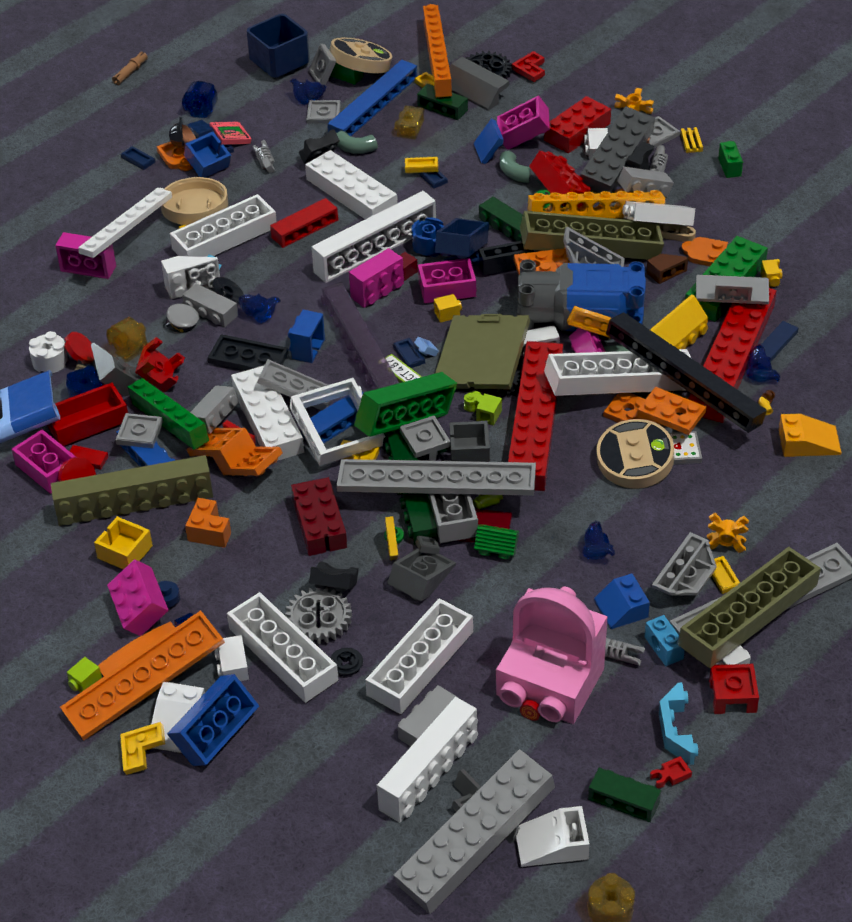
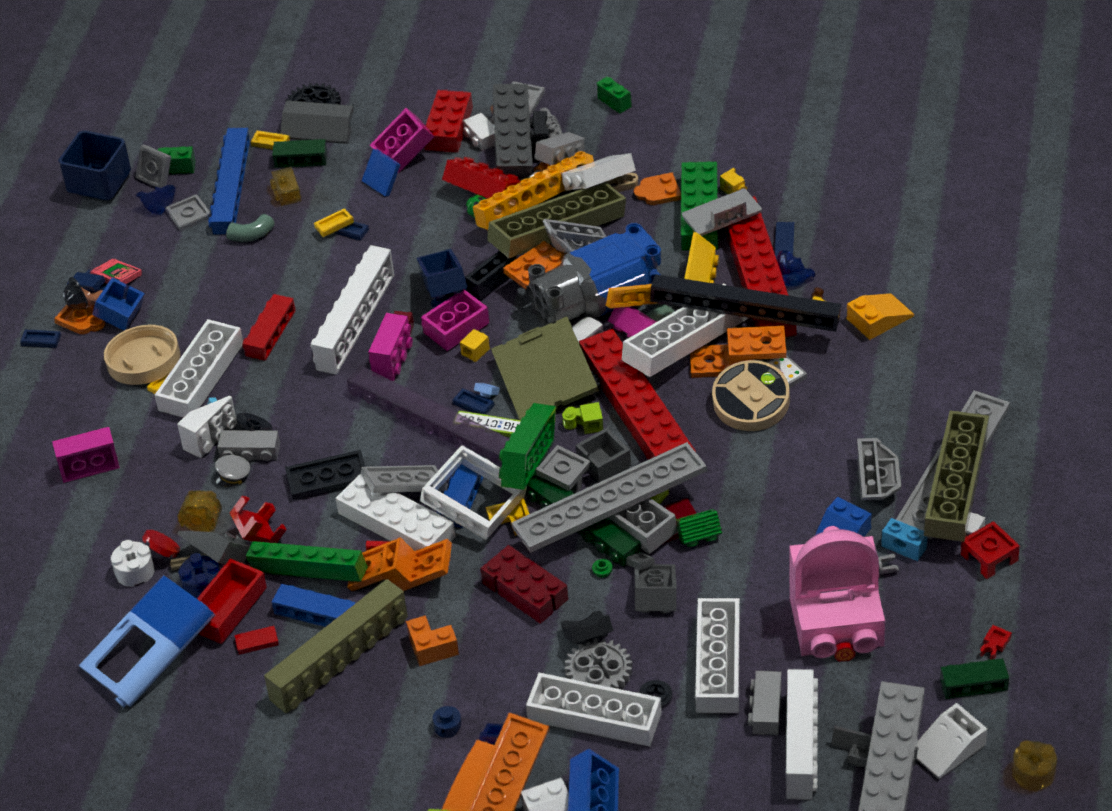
camera: 30 degrees left, 0 degrees up
(41, 458) = (226, 661): dark pink brick -> none
(75, 468) = (268, 655): red tile -> none
(125, 222) = (105, 404): white plate -> none
(127, 543) = (371, 696): yellow piece -> none
(137, 597) = (430, 734): dark pink brick -> none
(139, 430) = (295, 589): light grey tile -> none
(200, 99) = (58, 252): clear blue brick -> none
(216, 406) = (343, 530): light grey brick -> none
(232, 658) = (560, 744): white brick -> none
(258, 306) = (299, 425): clear blue hair -> none
(265, 157) = (172, 281): light grey hinge -> none
(306, 335) = (372, 430): blue piece -> none
(316, 147) = (224, 248): black brick -> none
(349, 185) = (285, 272): white brick -> none
(360, 55) = (185, 140): tan piece -> none
(391, 538) = (608, 570): yellow tile -> none
(425, 236) = (402, 287): blue brick -> none
(437, 51) = (256, 105): orange brick -> none
(501, 217) = (459, 239): dark green brick -> none
(512, 169) = (423, 189): sand green cylinder -> none
(529, 67) = (351, 85): red plate -> none
(596, 542) = (782, 488): clear blue hair -> none
(634, 101) = (482, 79): light orange pin -> none
(666, 267) = (640, 214): reddish brown slope -> none
(676, 744) = (982, 618): medium azure slope -> none
(690, 132) = (563, 90): yellow tile -> none
(724, 575) = (908, 465): yellow tile -> none
(727, 532) = (884, 423): light orange pin -> none

